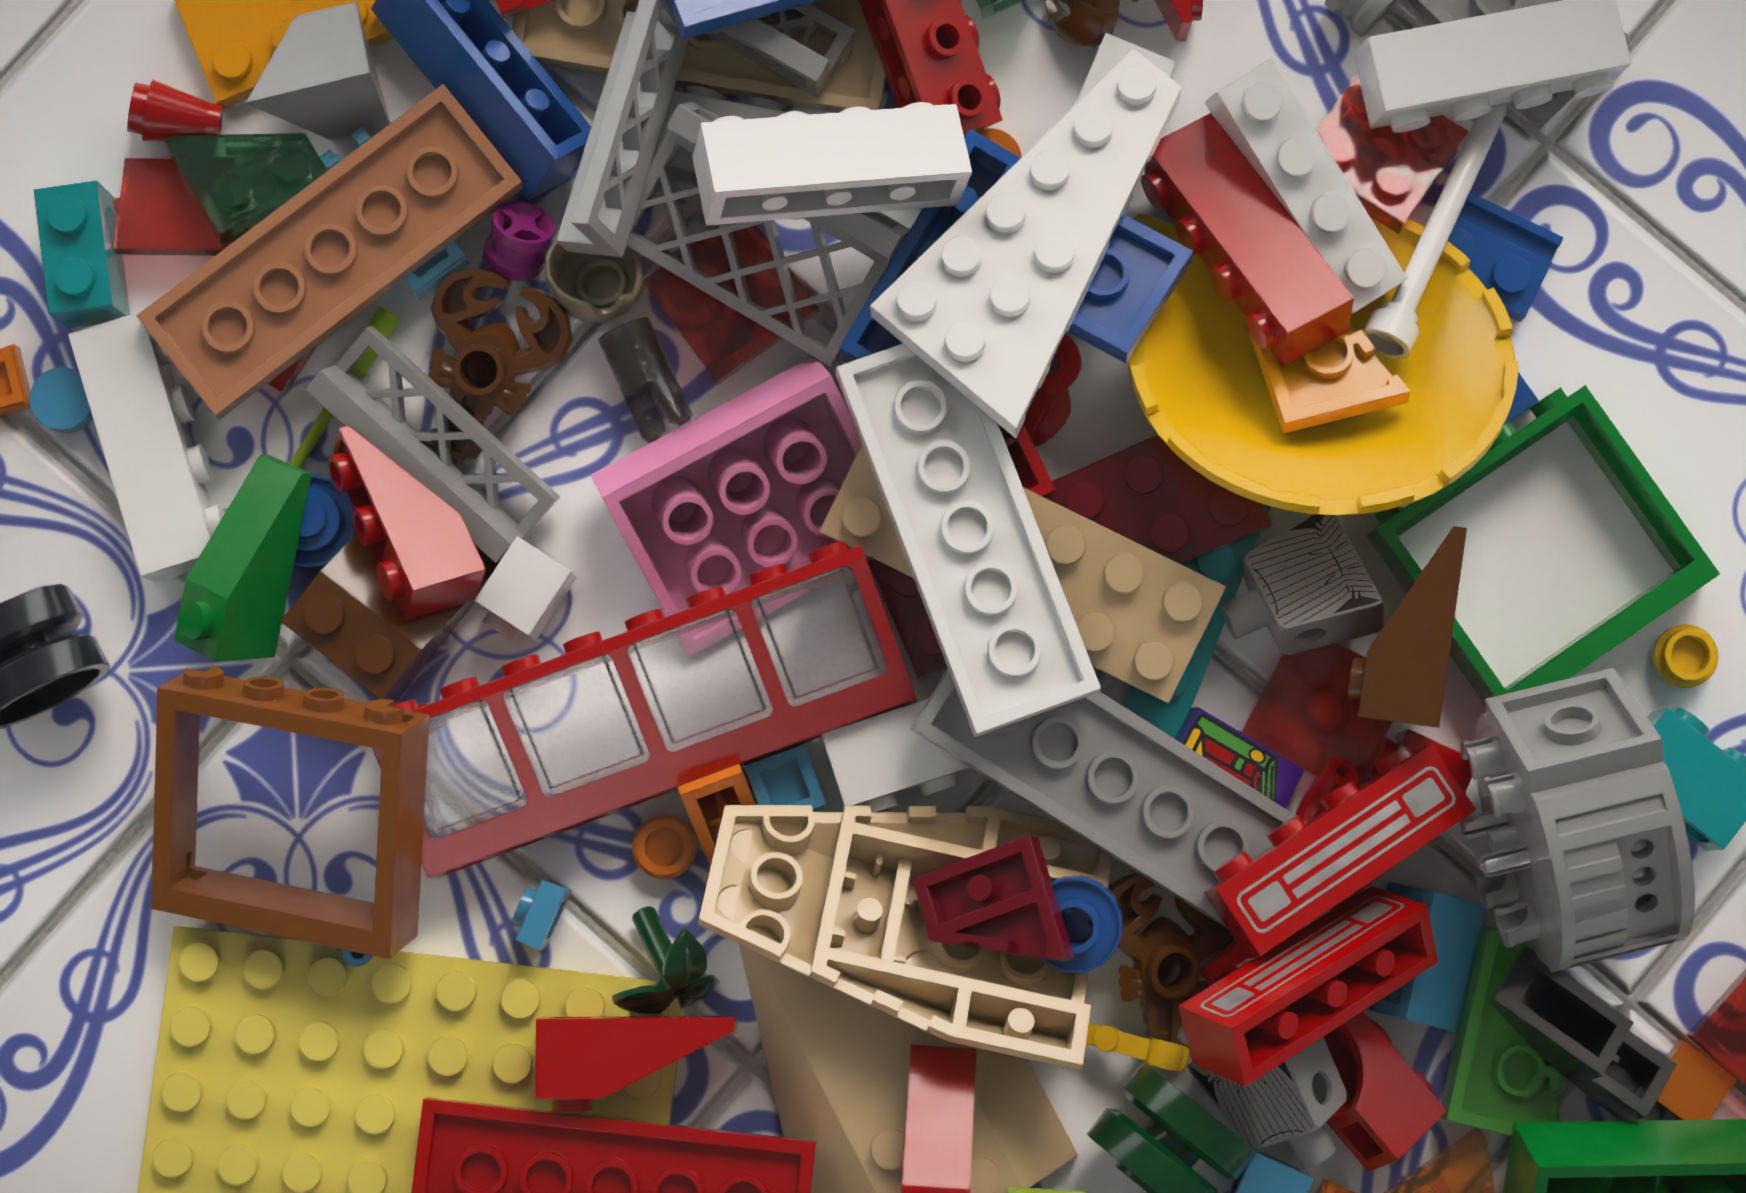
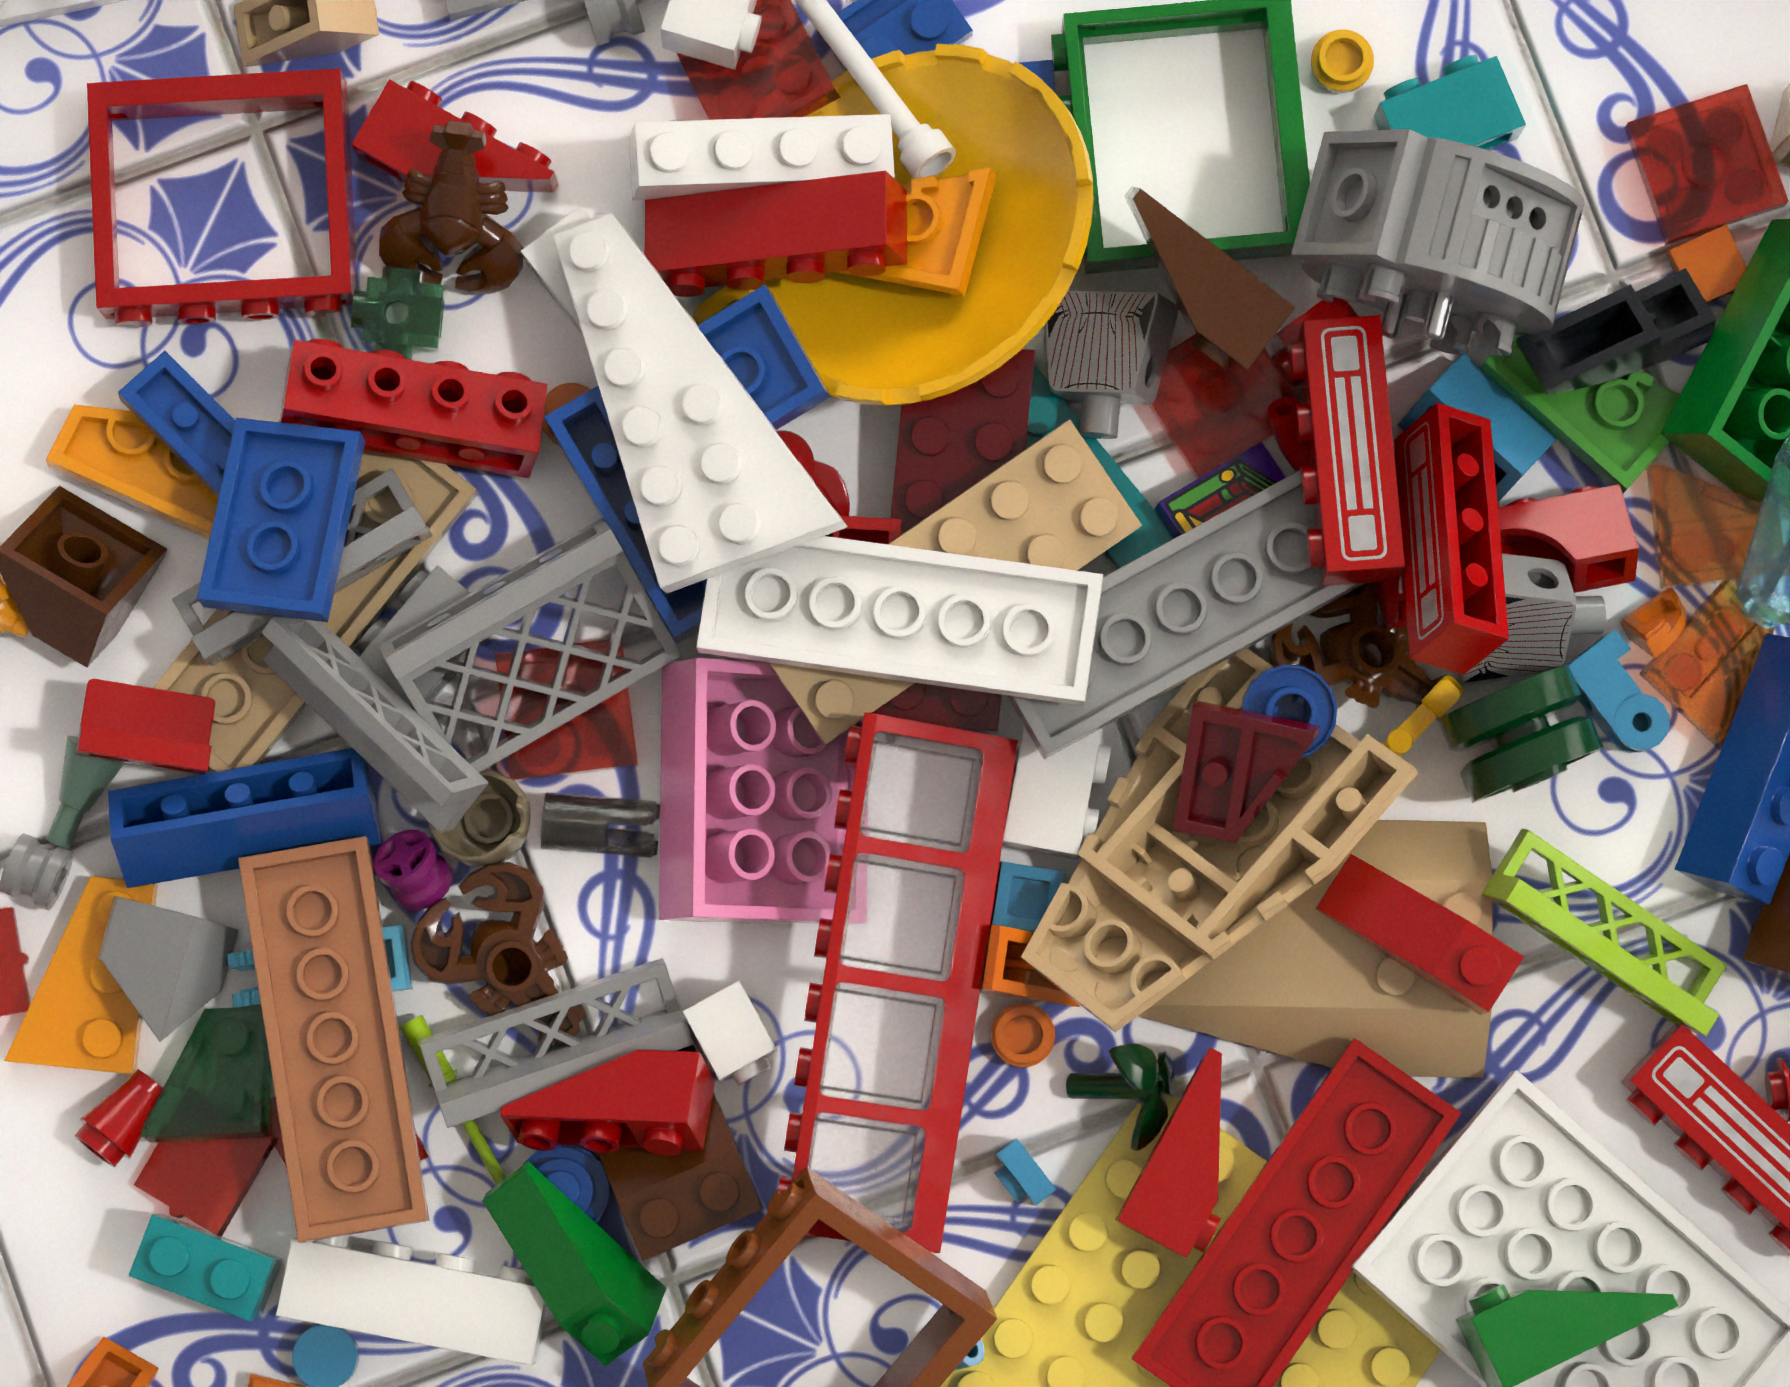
camera: 60 degrees left, 0 degrees up
(830, 163) = (515, 553): white brick -> none

